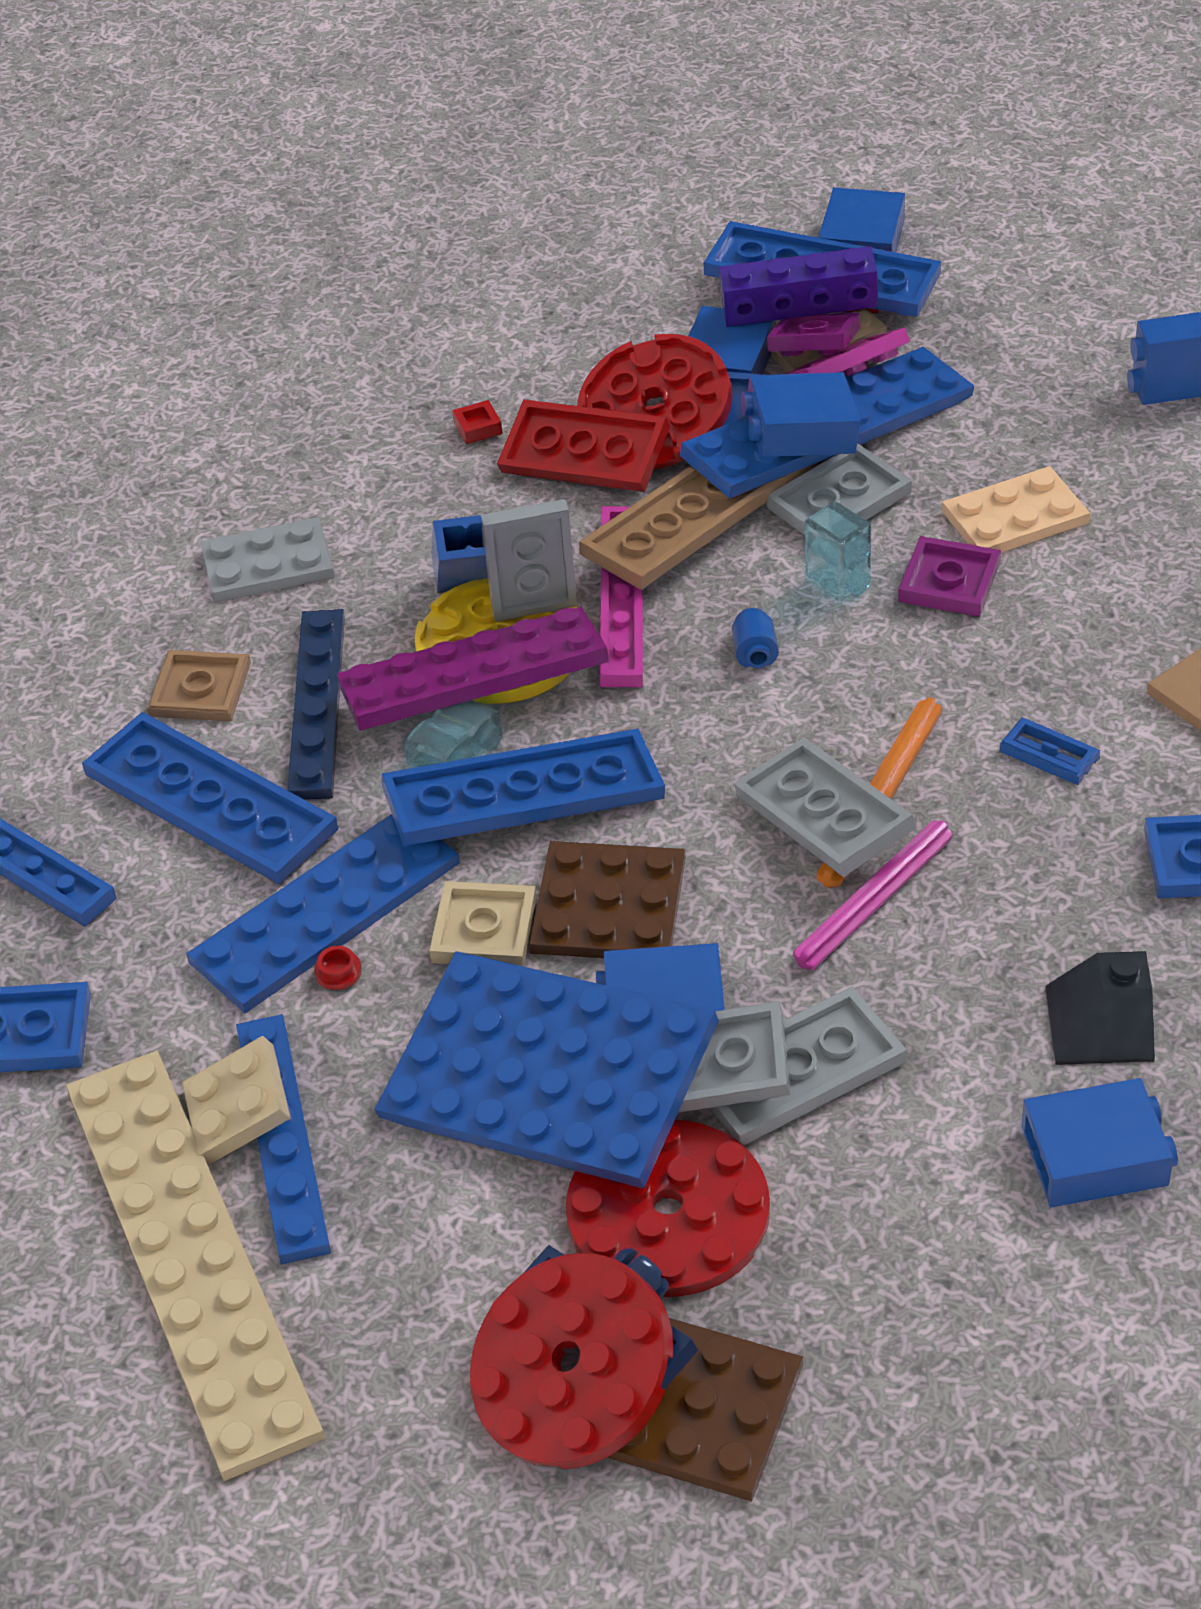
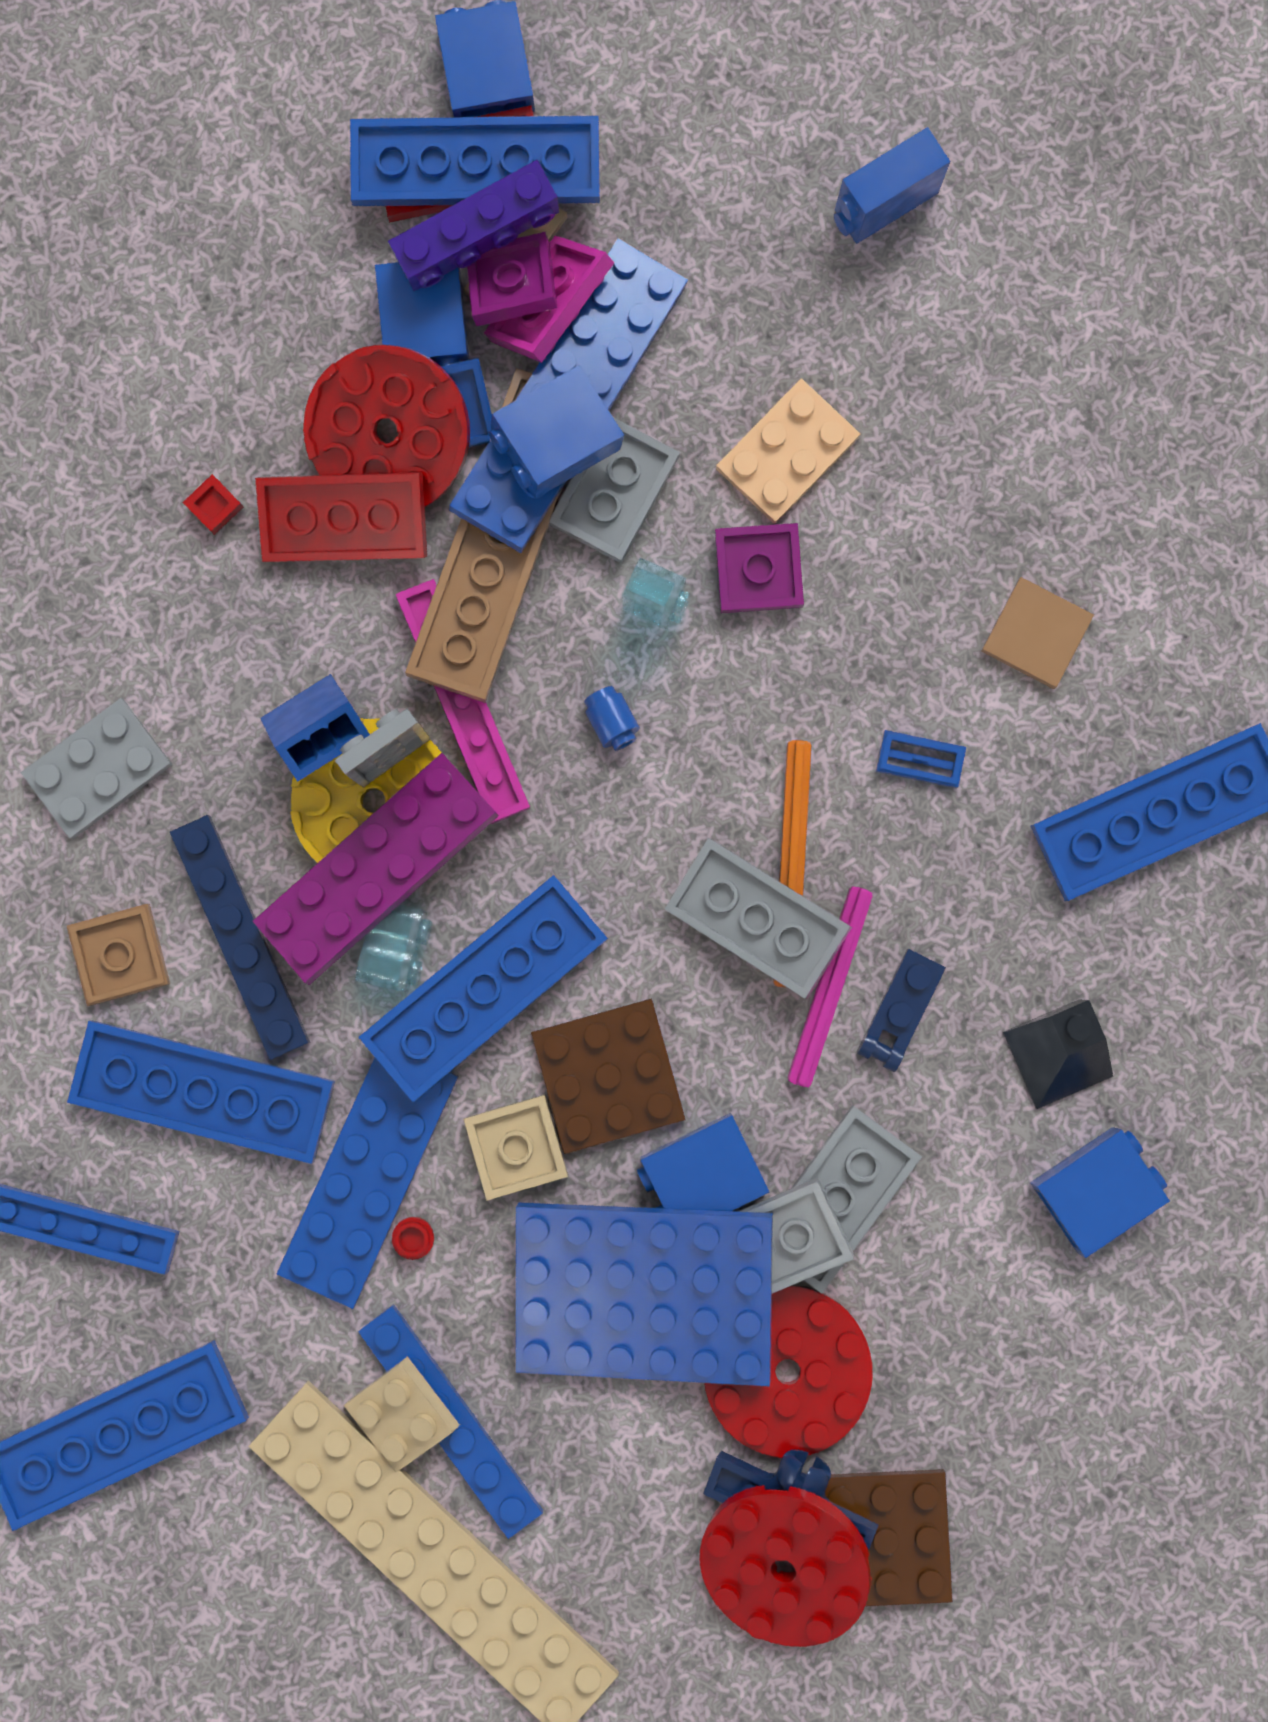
camera: 25 degrees left, 40 degrees up
(941, 934) = (901, 1008): none -> dark blue plate

